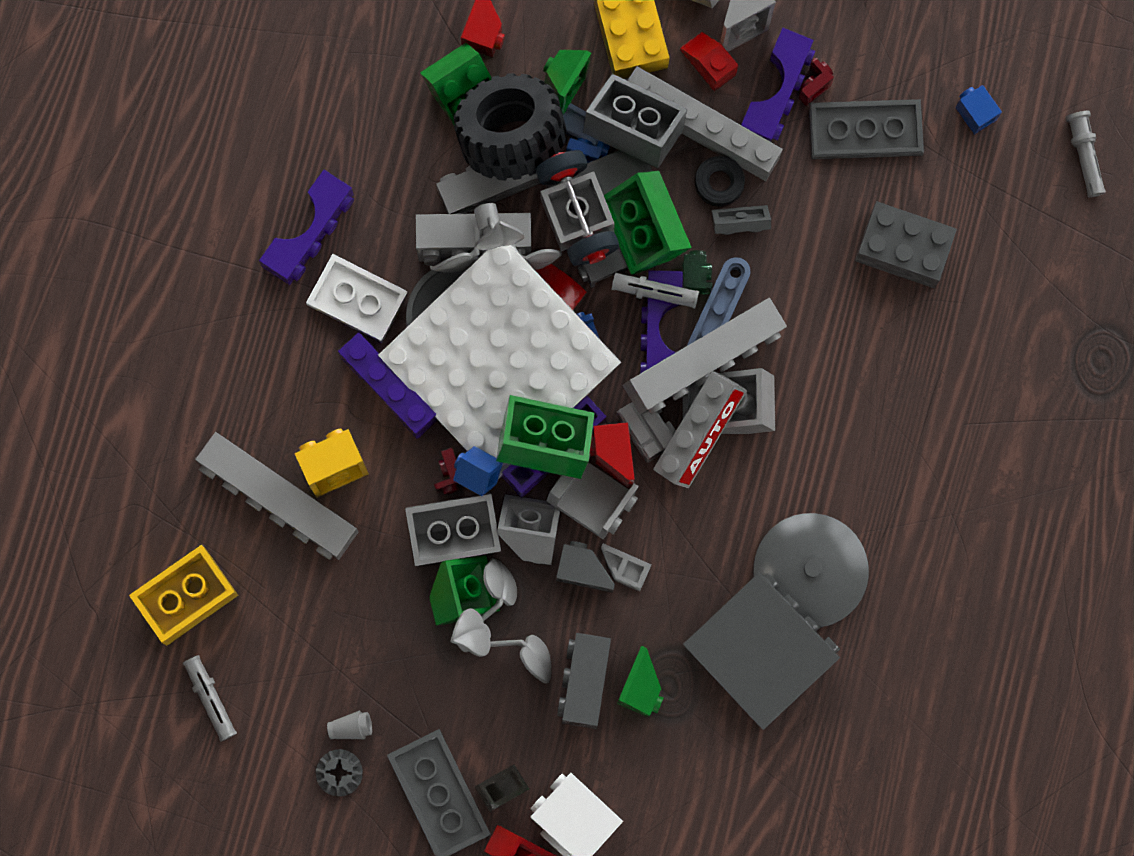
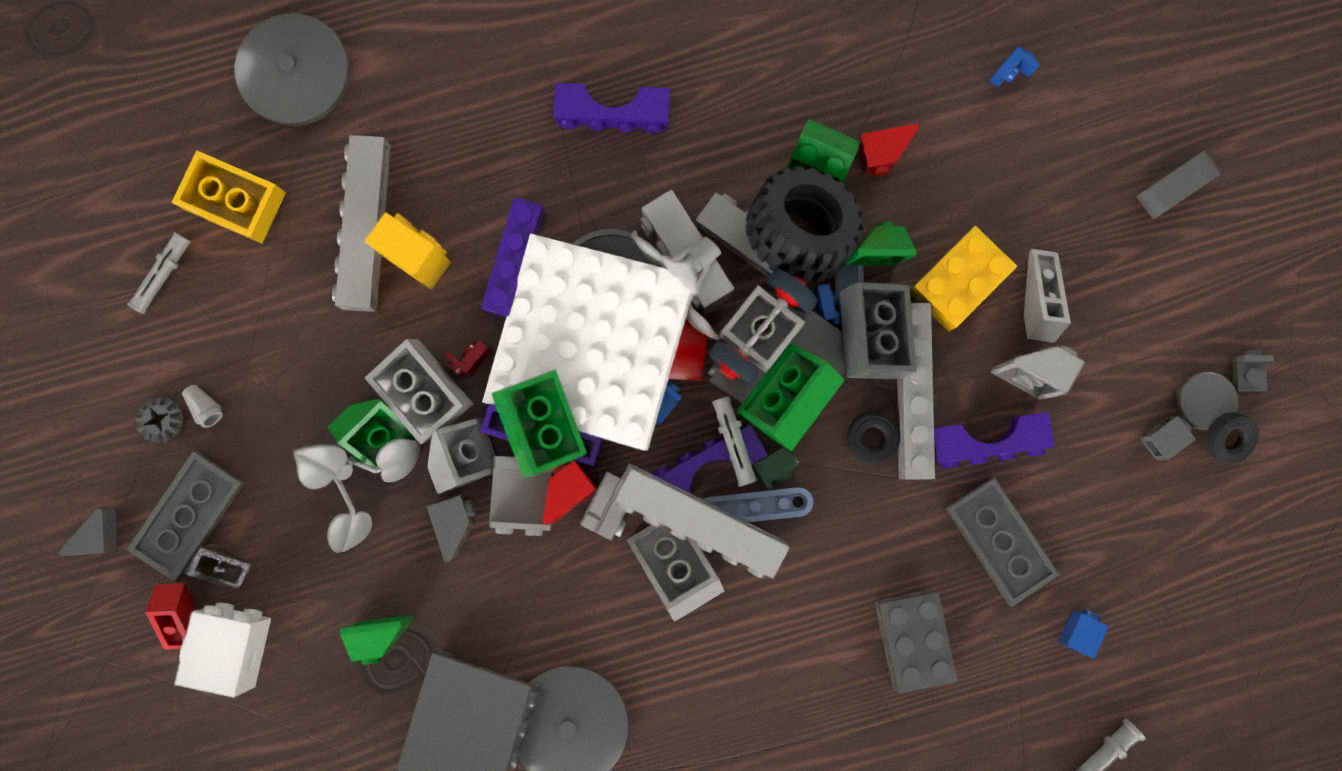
camera: 65 degrees right, 5 degrees up
(99, 481) = (292, 69): none -> dark grey dish
(357, 298) = (576, 187): white plate -> none
(477, 470) = (476, 381): blue brick -> none
(584, 680) = (348, 585): dark grey brick -> none
(625, 568) = (476, 560): light grey tile -> none
(700, 429) = (631, 556): light grey brick -> none
(710, 60) = (978, 365): red slope -> none
(741, 219) = (849, 479): dark grey plate -> none
(814, 87) = (1011, 471): dark red bracket -> none

